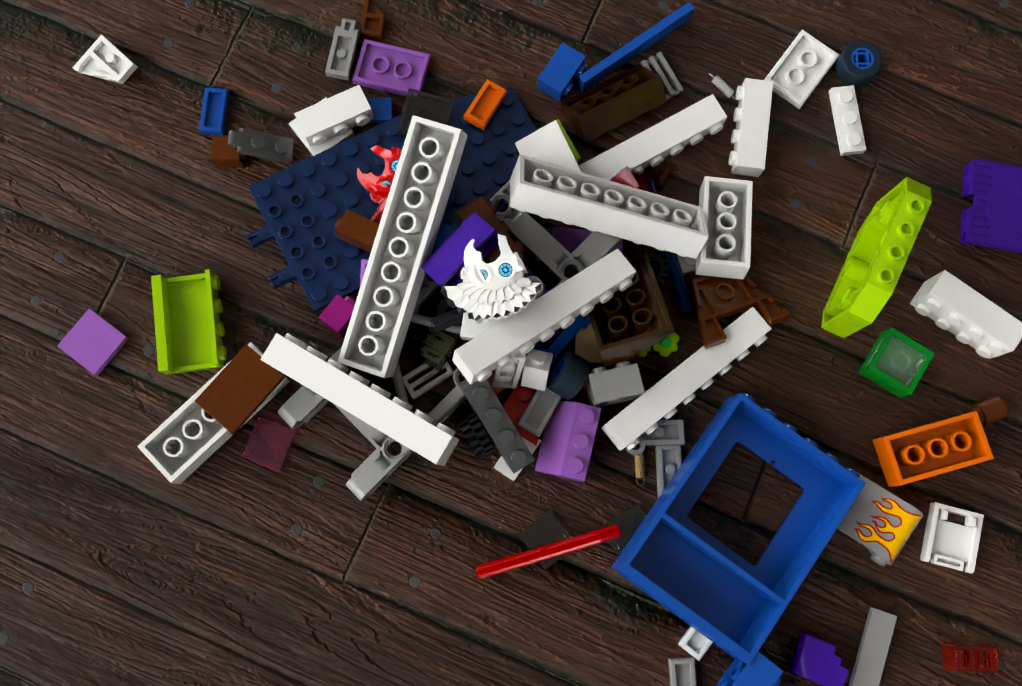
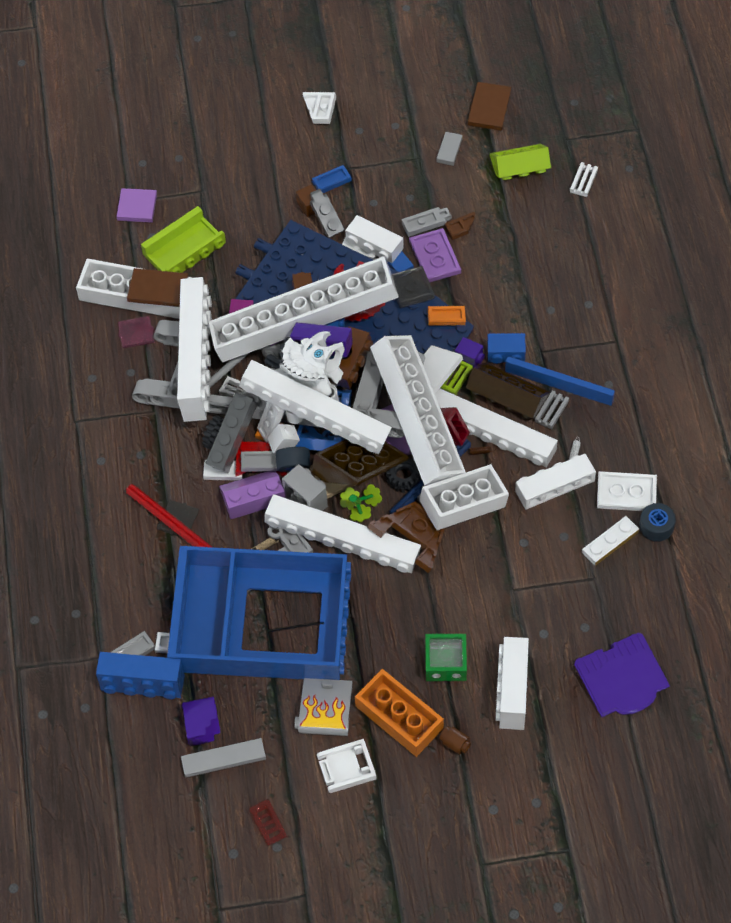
camera: 65 degrees right, 20 degrees down
(543, 110) = (470, 351): none -> dark purple brick
(876, 258) = (538, 561): lime panel -> none

